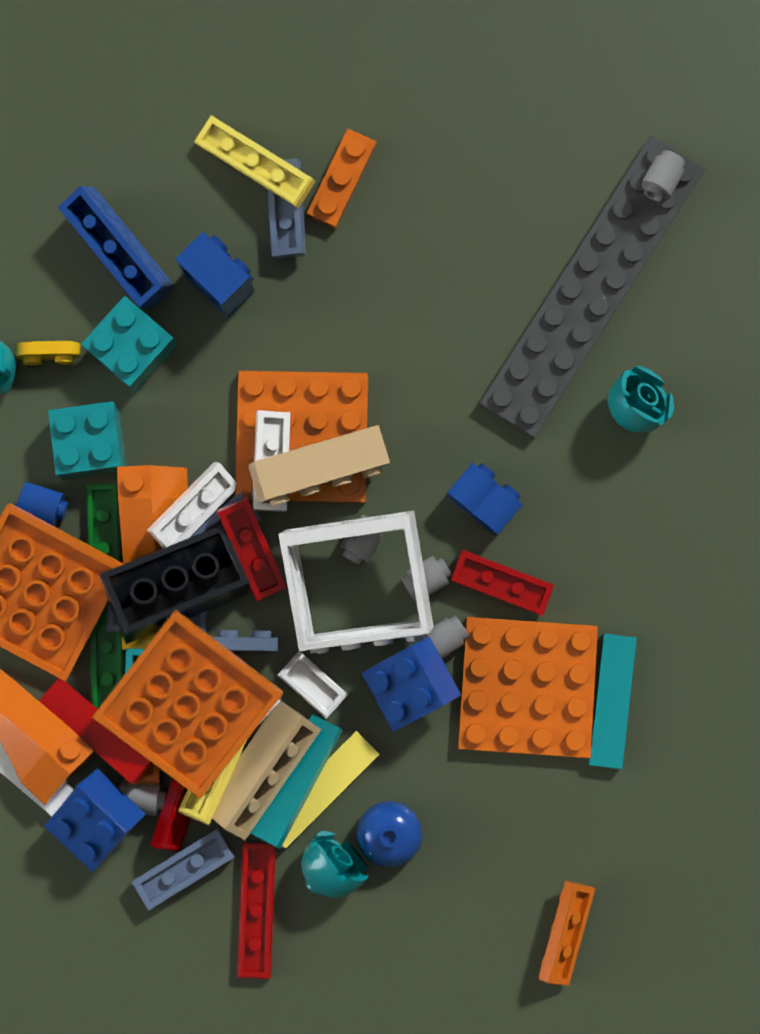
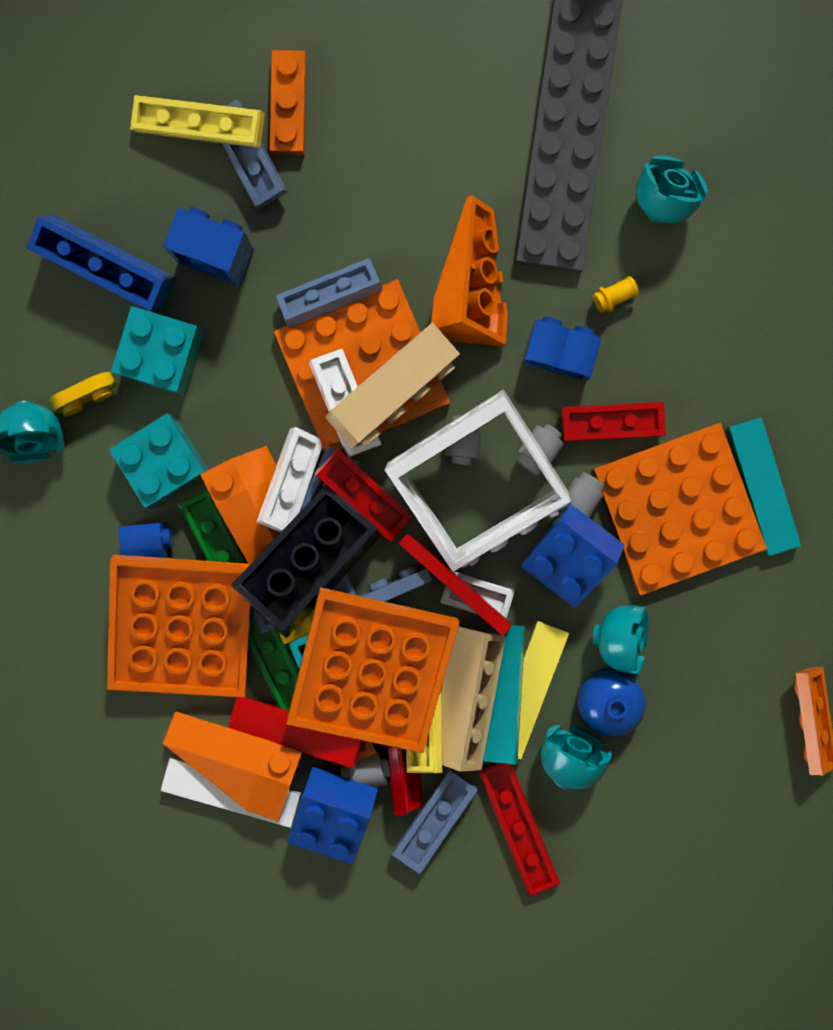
camera: 25 degrees left, 5 degrees up
(297, 663) = (455, 584): none -> red tile
(302, 358) = (329, 292): none -> sand blue plate
(425, 412) = (468, 292): none -> orange wedge
(425, 778) = (623, 637): none -> teal cylinder
(554, 471) = (615, 294): none -> yellow pin

